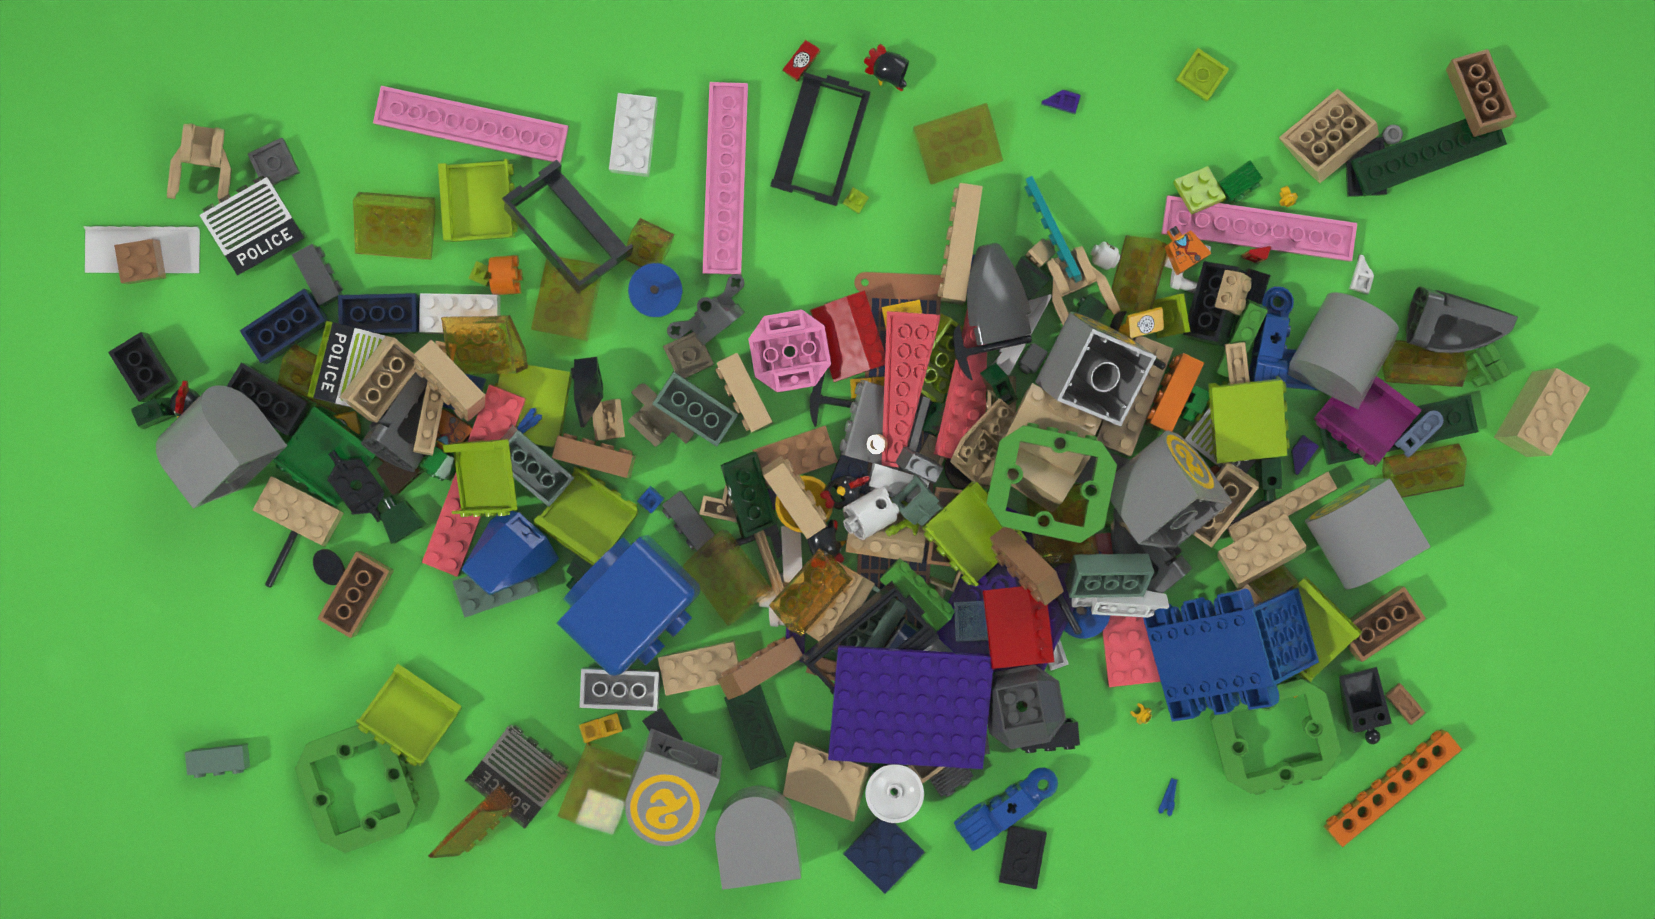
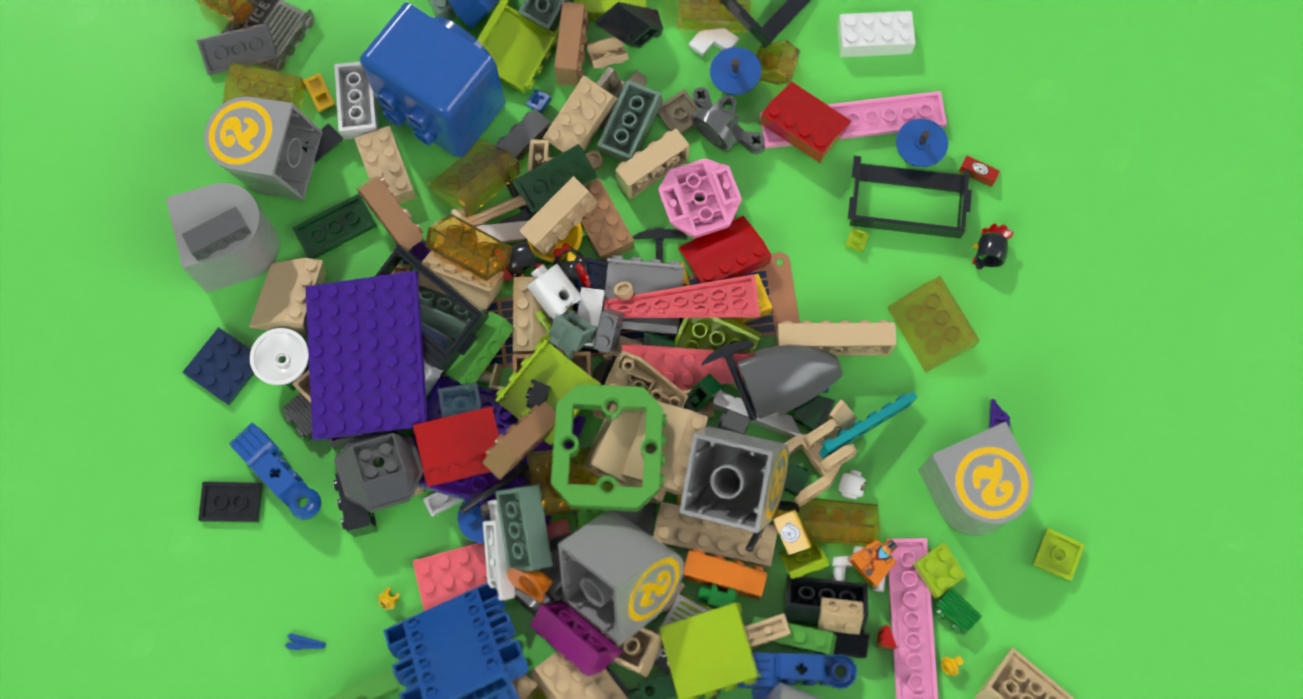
camera: 80 degrees right, 15 degrees down
(539, 808) = (239, 46): none -> dark grey tile
(606, 299) = (705, 39): none -> white tile
(683, 458) = (581, 116): none -> tan brick
(722, 227) = (804, 121): none -> red slope
(724, 453) = (595, 159): none -> tan tile
(767, 114) = (922, 142): none -> blue piece
(774, 840) = (216, 233): none -> dark grey brick
(976, 543) = (537, 394): none -> black brick
(1130, 134) = (979, 481): none -> light grey brick
(1162, 572) = (530, 582): none -> orange piece
(1215, 542) = (575, 638): none -> magenta slope

